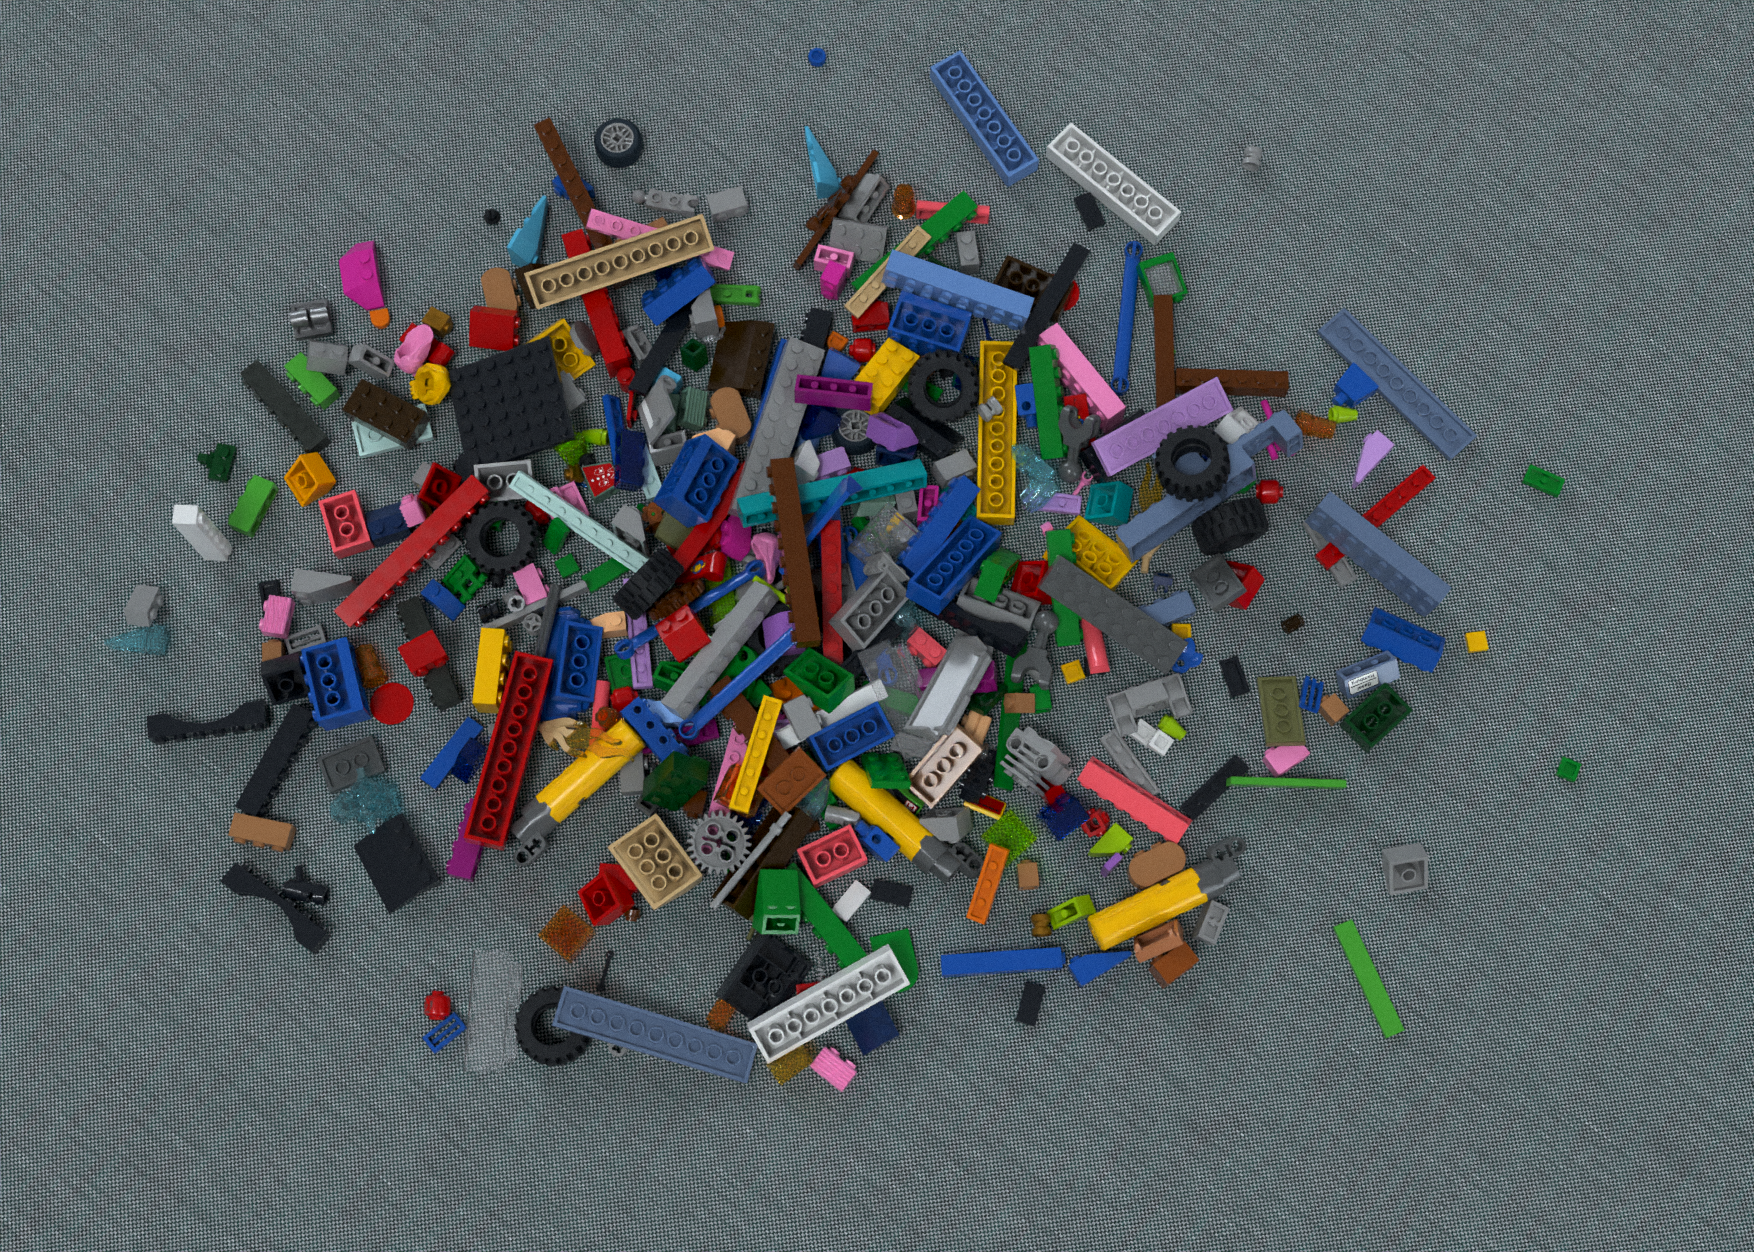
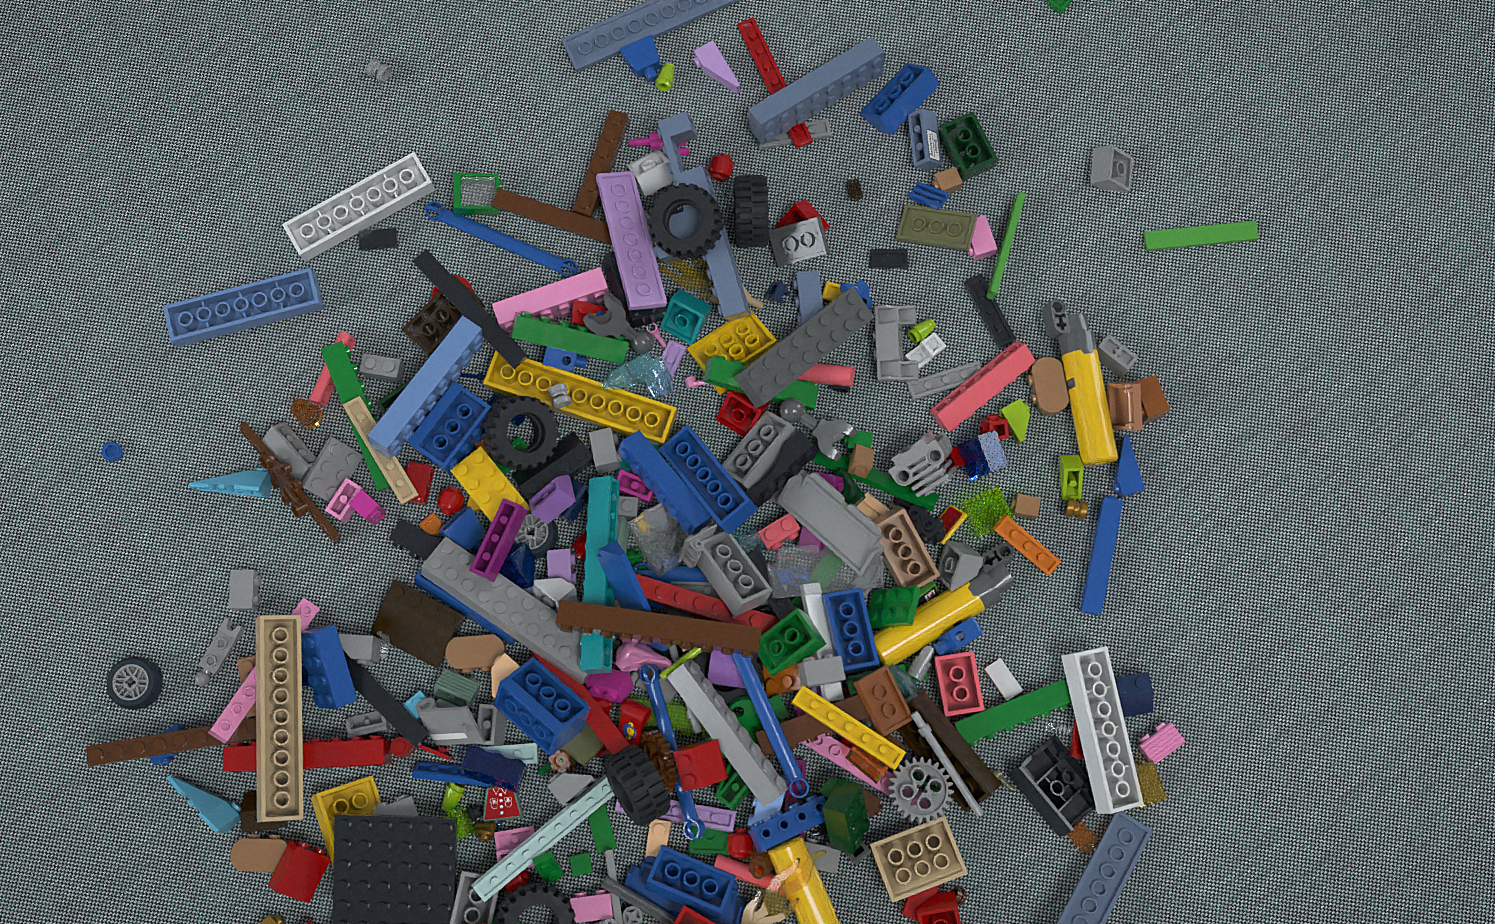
camera: 70 degrees left, 5 degrees up
(491, 216) = (168, 840): black piece -> none
(583, 338) = (342, 779): light grey tile -> none
(694, 355) = (399, 670): dark green brick -> none
(719, 314) = (359, 631): orange tile -> none
(735, 294) = (347, 609): bright green plate -> none
(777, 902) = (995, 750): green slope -> none
(891, 893) = (1006, 639): black tile -> none
(903, 950) = (1060, 644): green tile -> none
(996, 571) = (727, 441): green wedge -> none
(1030, 1004) = (1145, 542): black tile -> none
(1072, 672) = (840, 403): yellow tile -> none
(1111, 864) = (1040, 426): medium lavender tile -> none
(1314, 425) = (669, 104): clear orange plant -> none
(1476, 641) = (919, 37): yellow tile -> none

